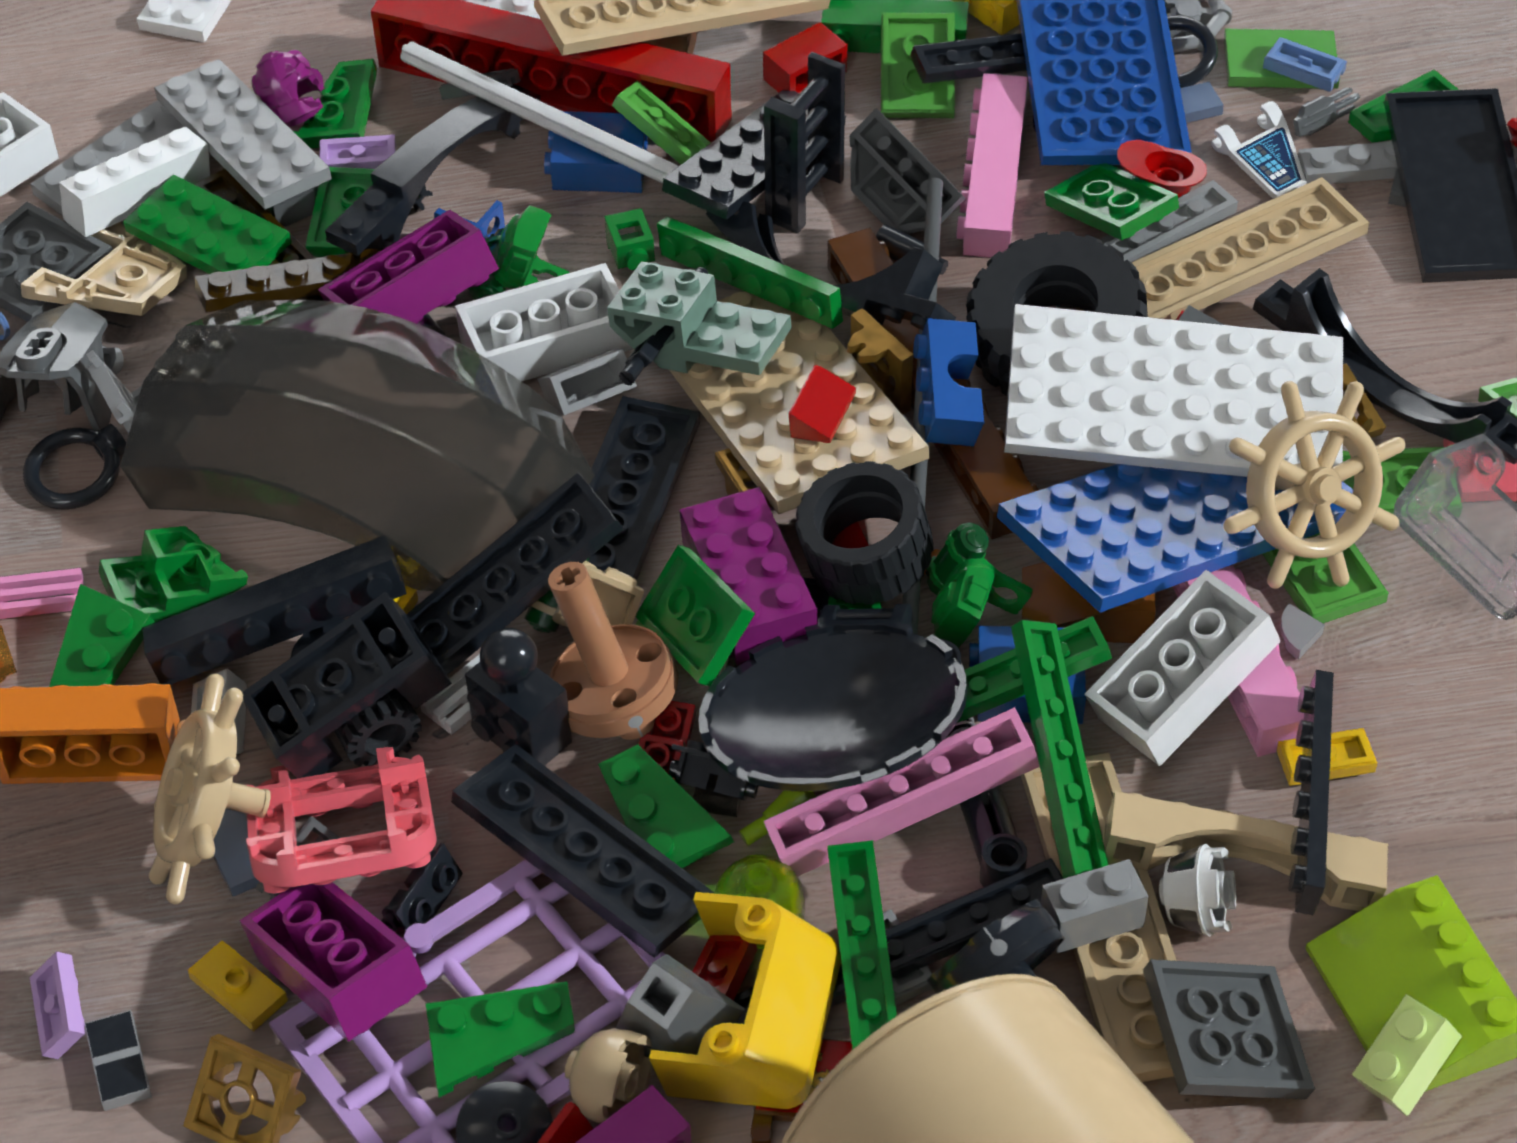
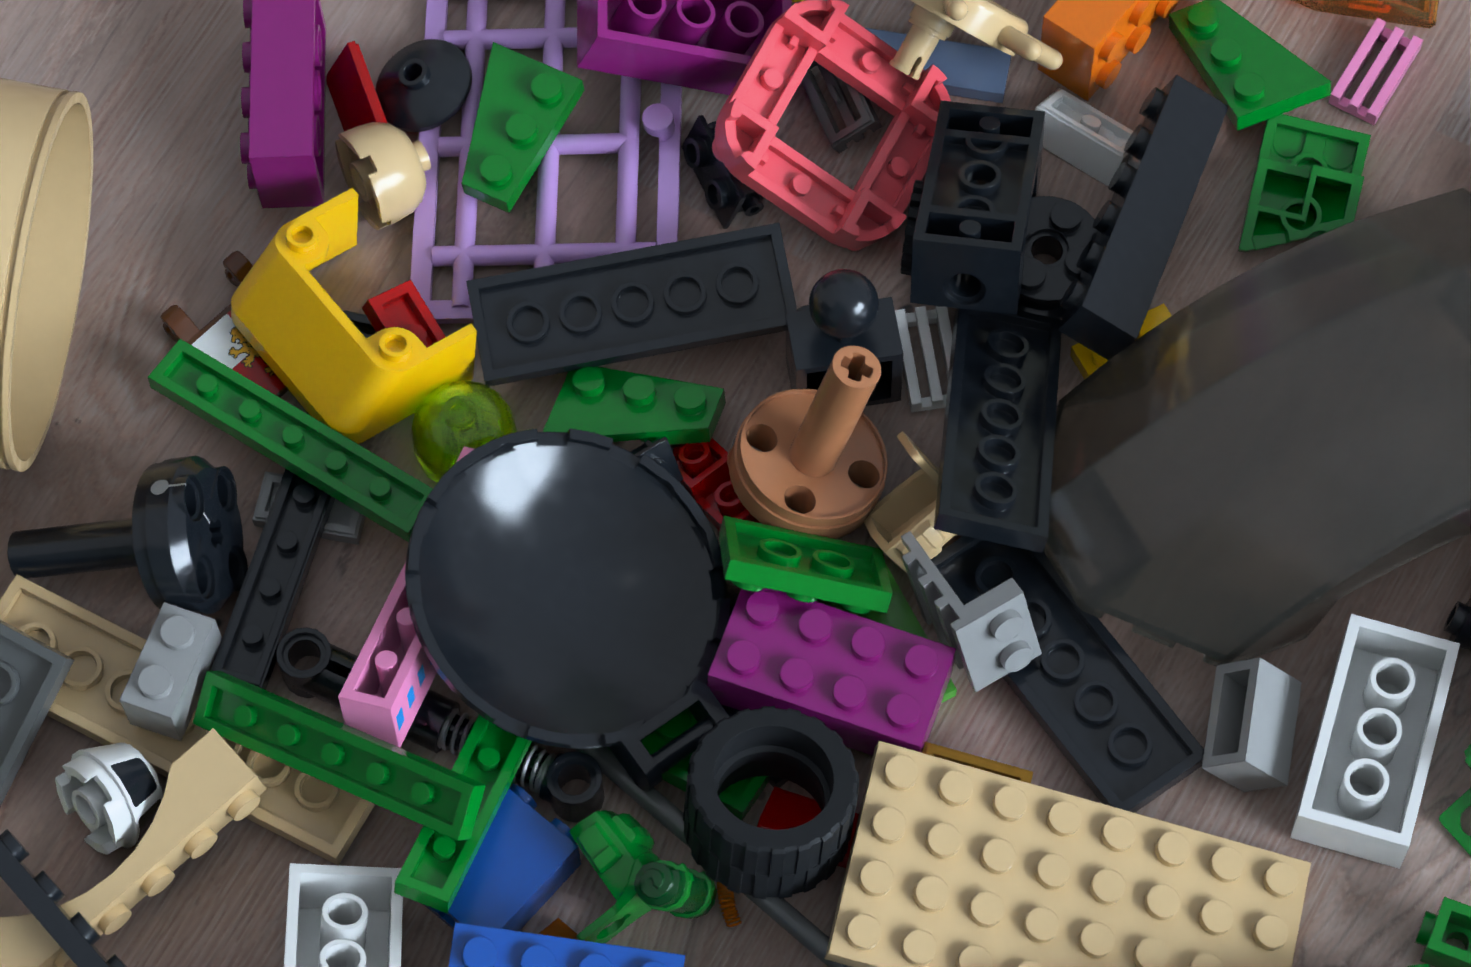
camera: 130 degrees right, 15 degrees up
(659, 501) = (989, 633): none -> light grey plate
(676, 1008) = (384, 248): dark grey slope -> none
(678, 322) = (1221, 856): sand green piece -> none
(820, 406) = (973, 881): red slope -> none

